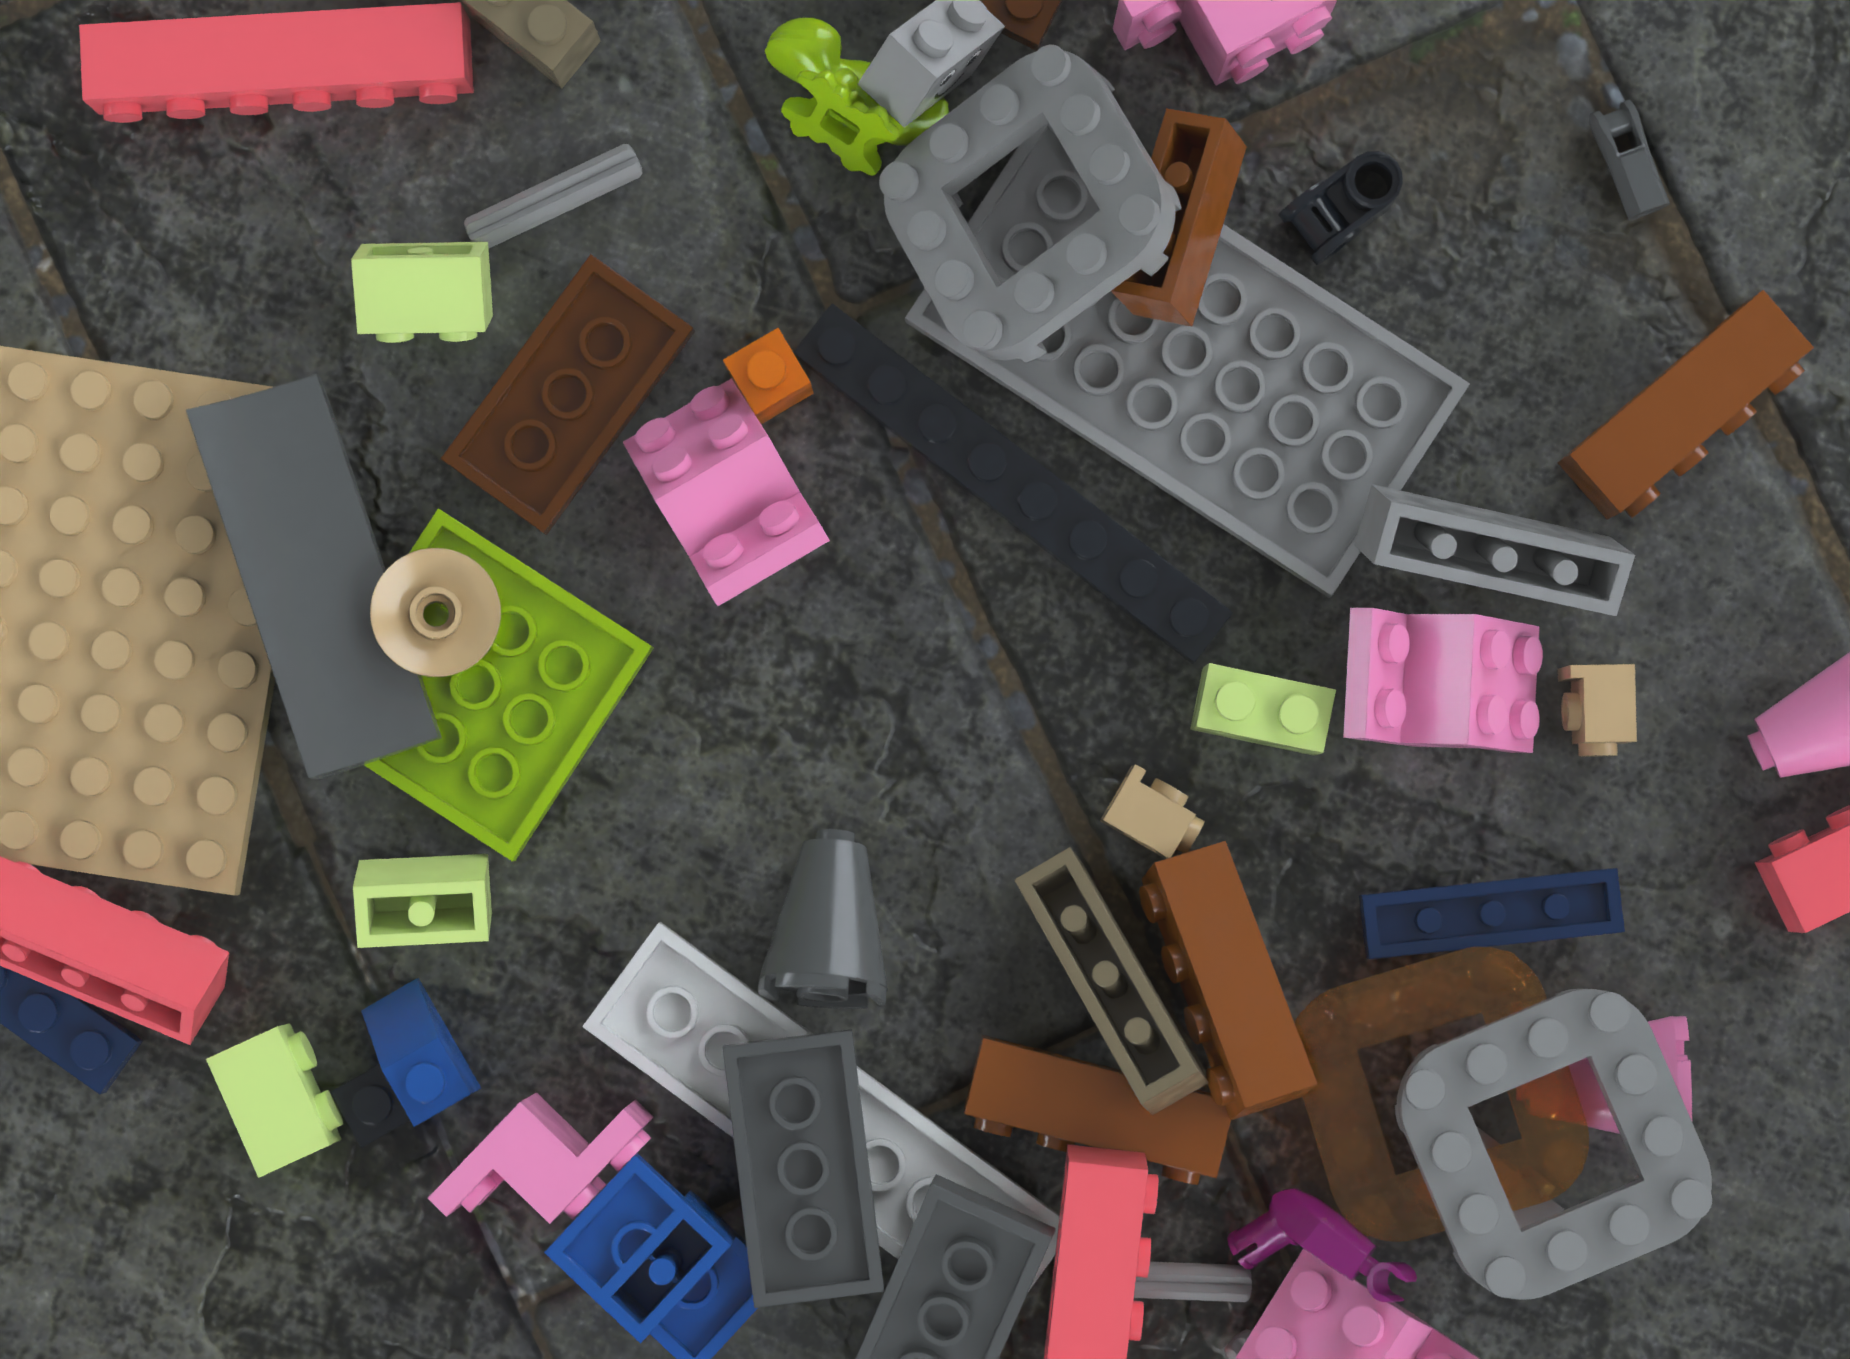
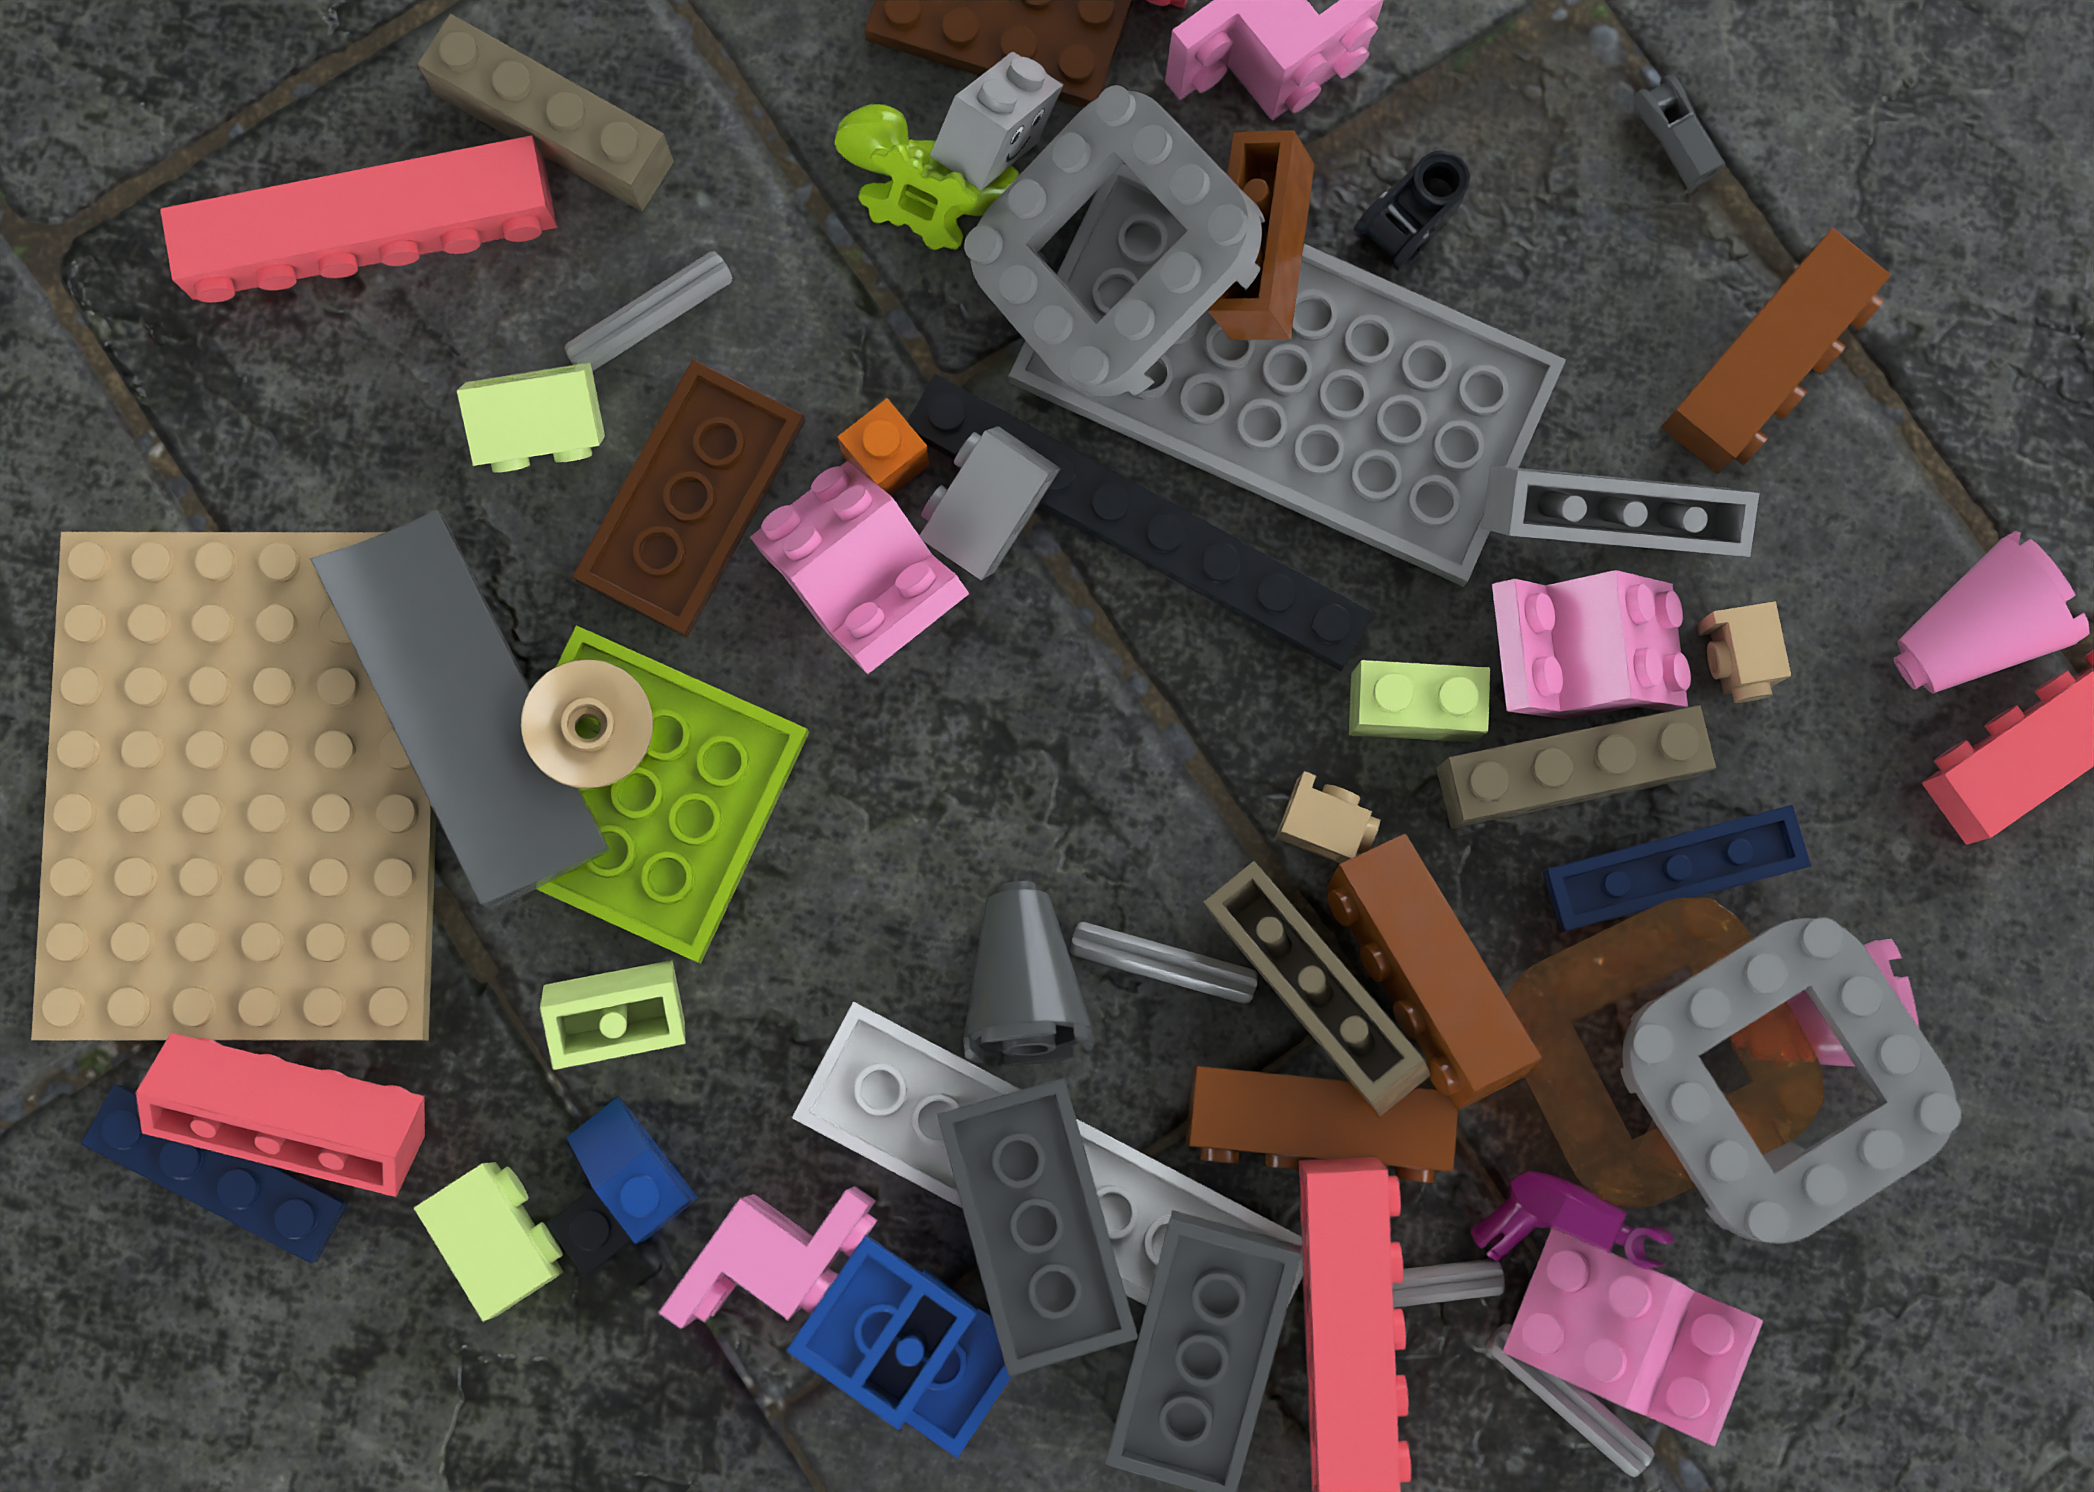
camera: 15 degrees left, 5 degrees down
(863, 445) = (987, 501): none -> light grey brick
(968, 929) = (1164, 962): none -> light grey axle
(1407, 798) = (1575, 766): none -> dark tan brick

